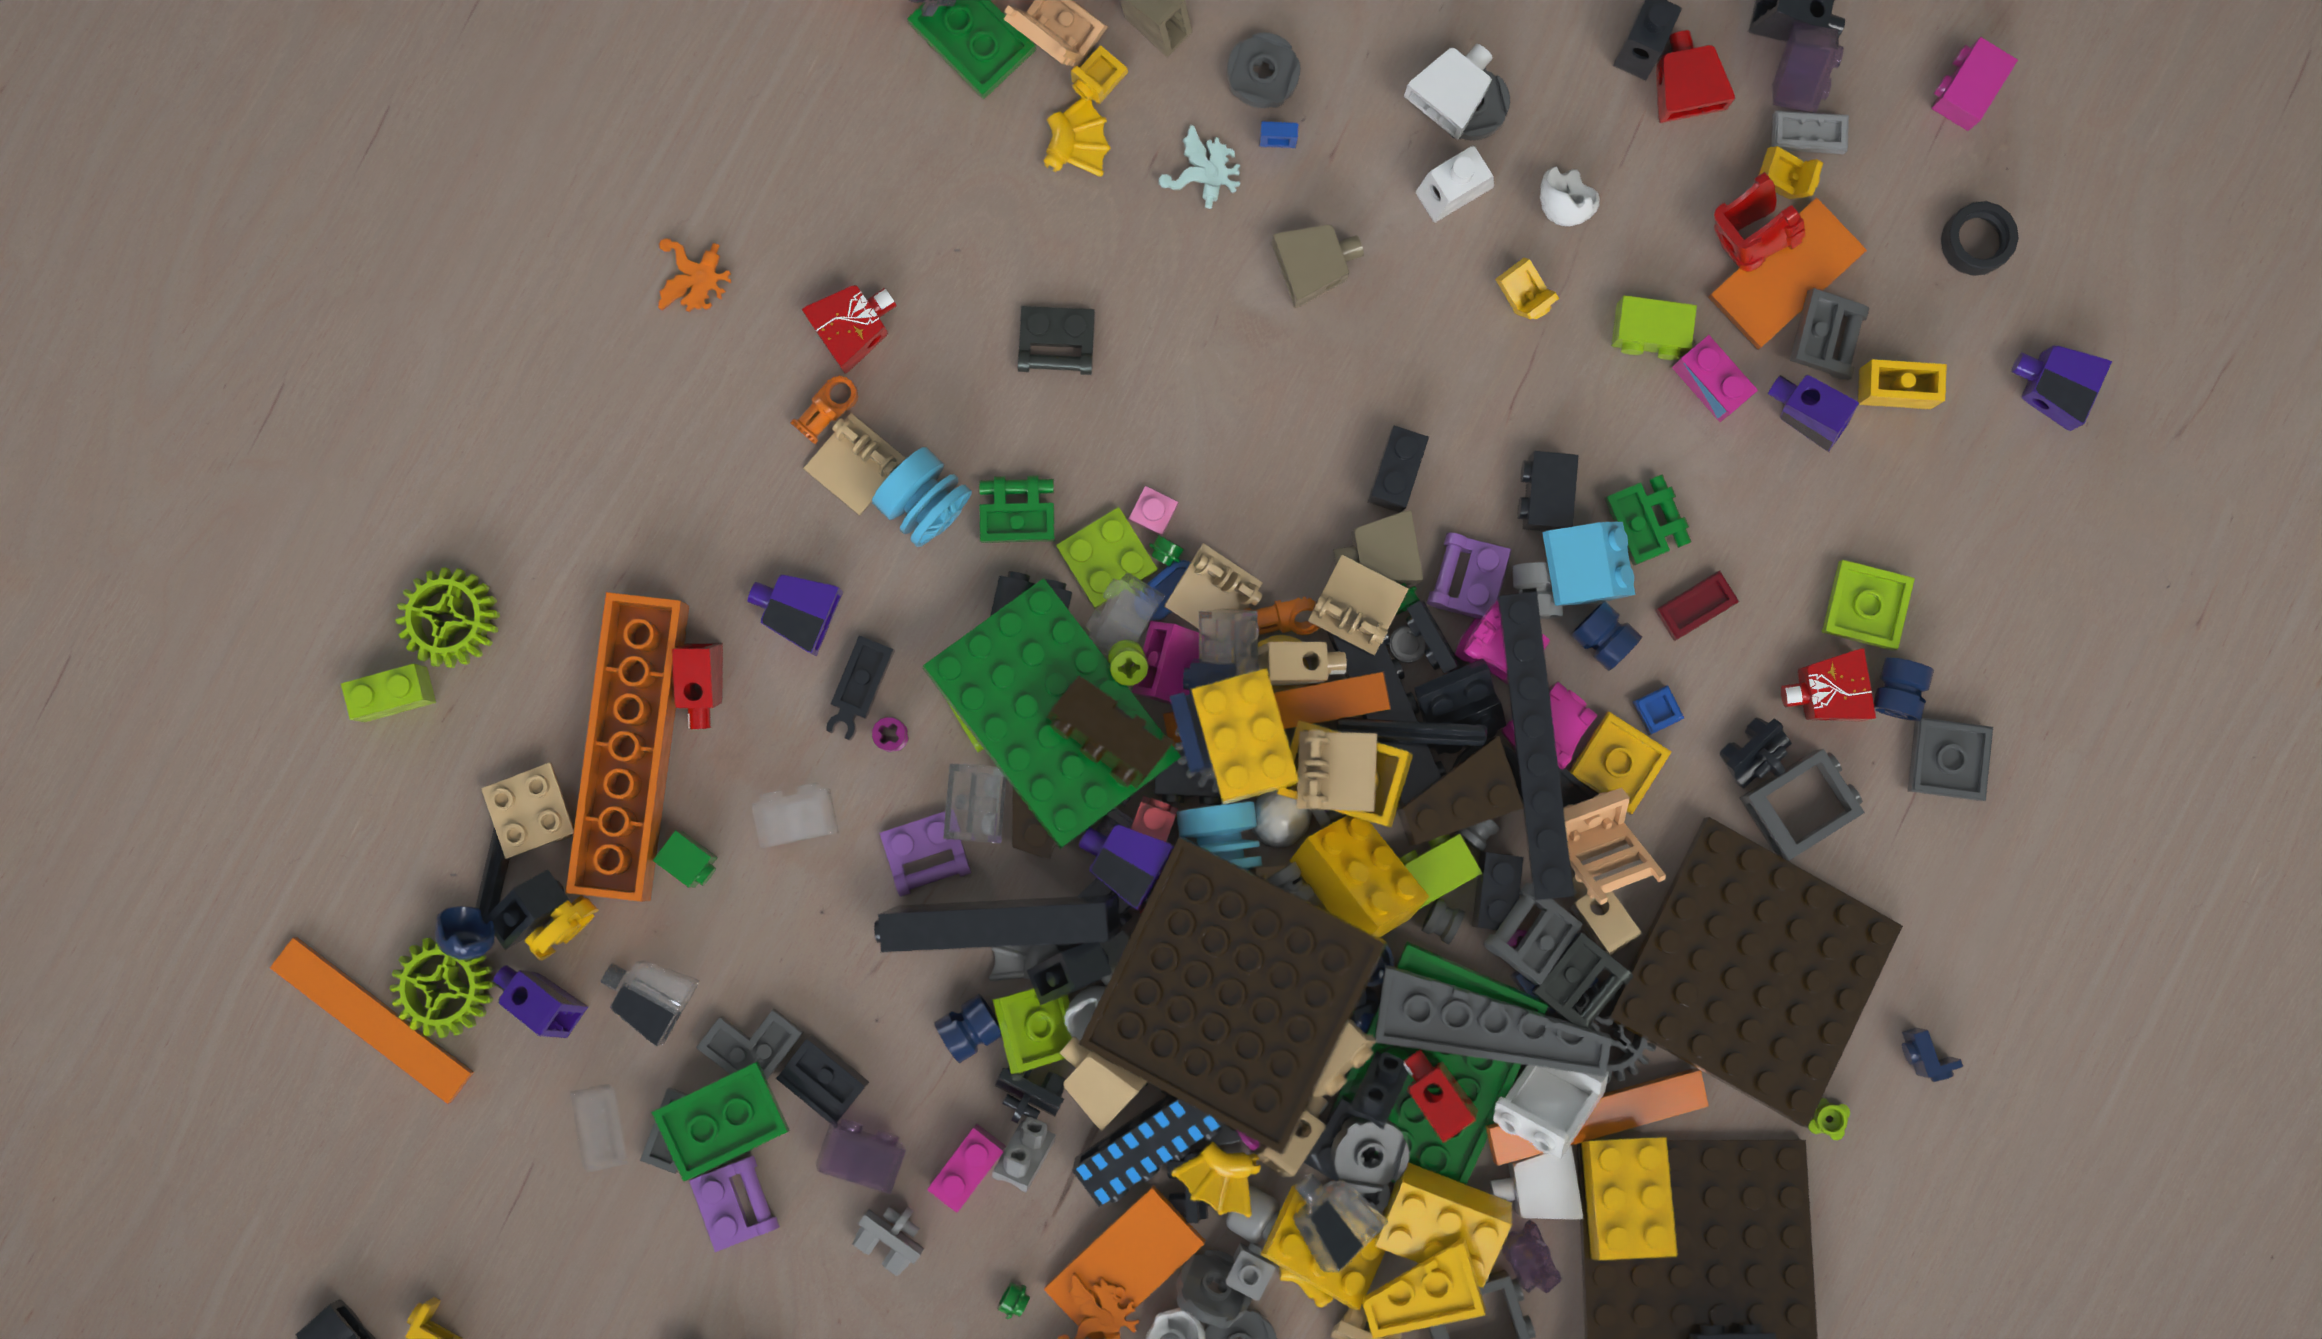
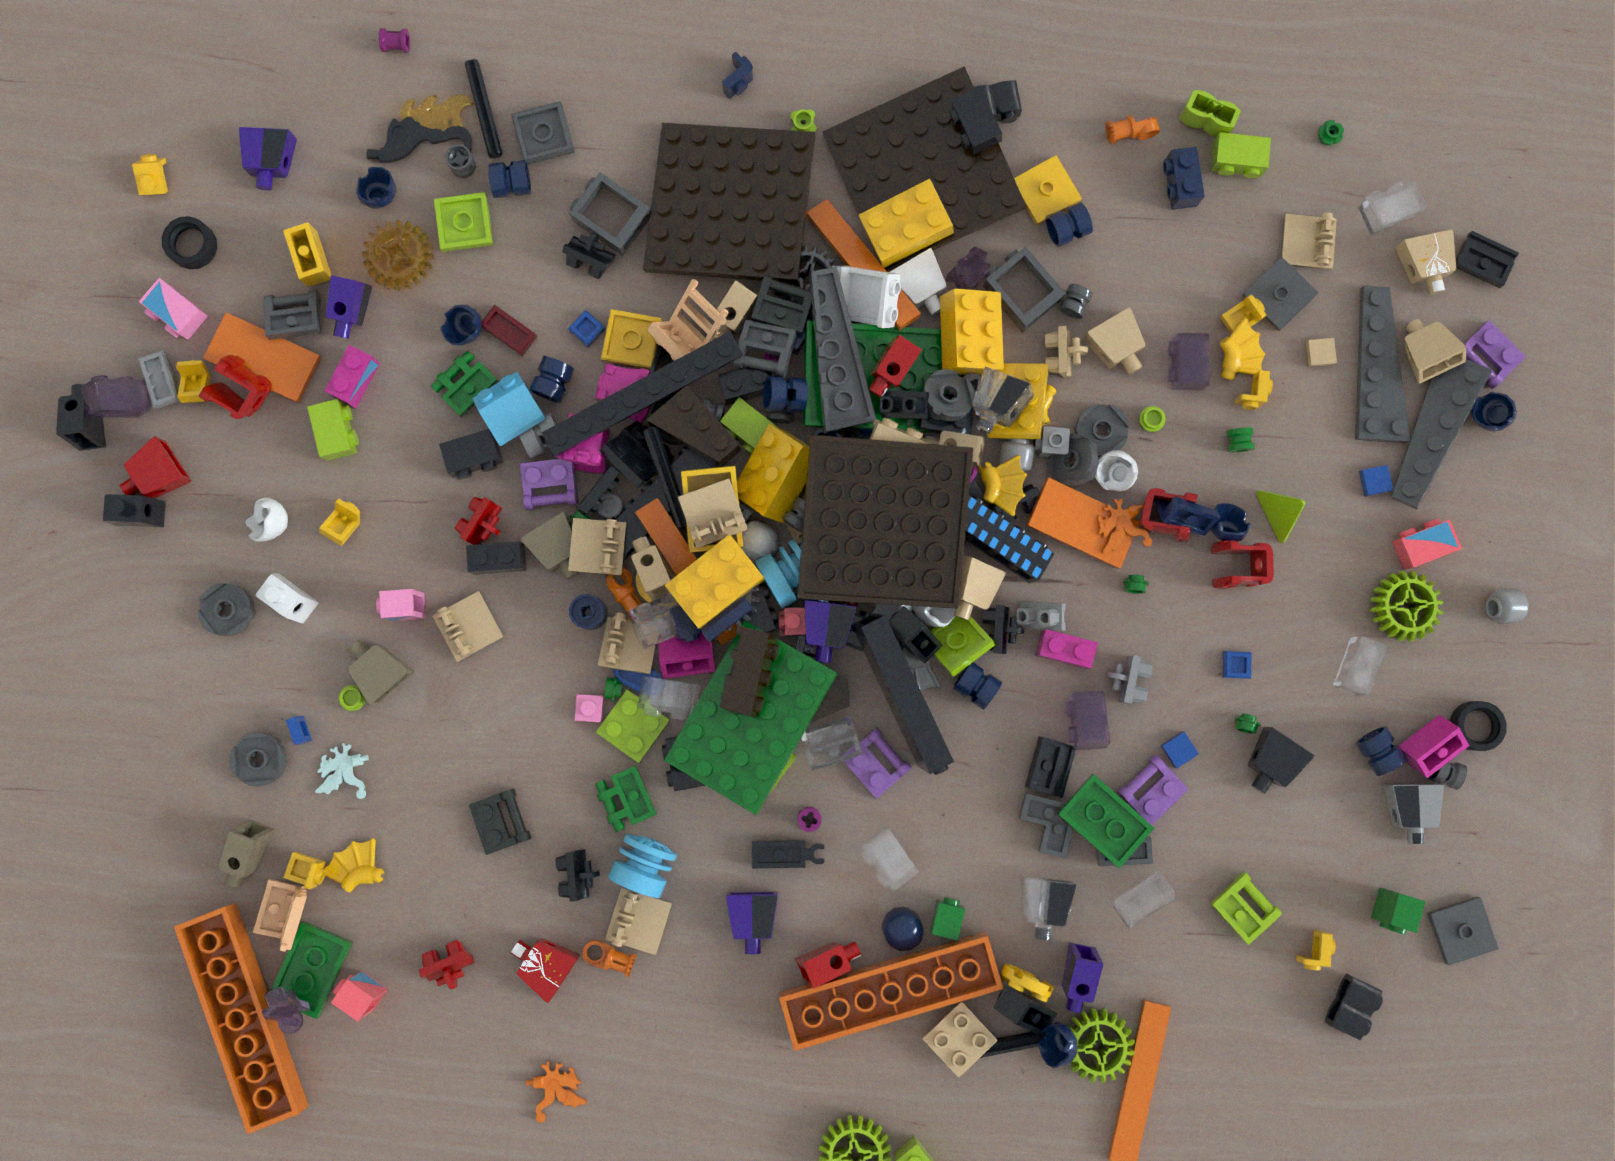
camera: 115 degrees left, 0 degrees up
(526, 1247) = (1240, 914): none -> lime plate
(699, 797) = (902, 929): none -> dark blue hair
(771, 1263) = (1179, 749): none -> blue tile
(900, 199) = (448, 969): none -> red hips
(913, 80) = (358, 995): none -> coral brick
(946, 412) = (579, 875): none -> black hips
(1125, 653) = (696, 687): lime wheel -> none
(1277, 559) = (588, 612): none -> dark blue wheel
(1292, 215) = (351, 698): none -> lime plate
(1324, 398) = (467, 626): none -> tan hinge
(1385, 324) = (401, 605): none -> bright pink brick
(1427, 1295) = (1020, 324): yellow wing -> none
(1452, 88) = (221, 626): white torso -> none
(1452, 470) = (481, 523): none -> red hips
(1458, 938) = (785, 394): none -> dark blue wheel
(1727, 546) = (461, 325): none -> dark blue hair
(1833, 689) = (527, 222): red torso -> none
(1868, 510) = (402, 236): none -> clear yellow gear
(1897, 184) = (173, 309): none -> bright pink brick
(1958, 508) = (376, 188): none -> dark blue hair
(1962, 634) = (456, 156): none -> dark grey wheel
(1973, 84) = (84, 285): dark pink brick -> none
(2015, 693) = (483, 108): none -> black axle
(2025, 606) = (424, 123): none -> piece
(2092, 222) = (150, 175): none -> yellow bracket
(2156, 612) = (394, 40): none -> magenta bush

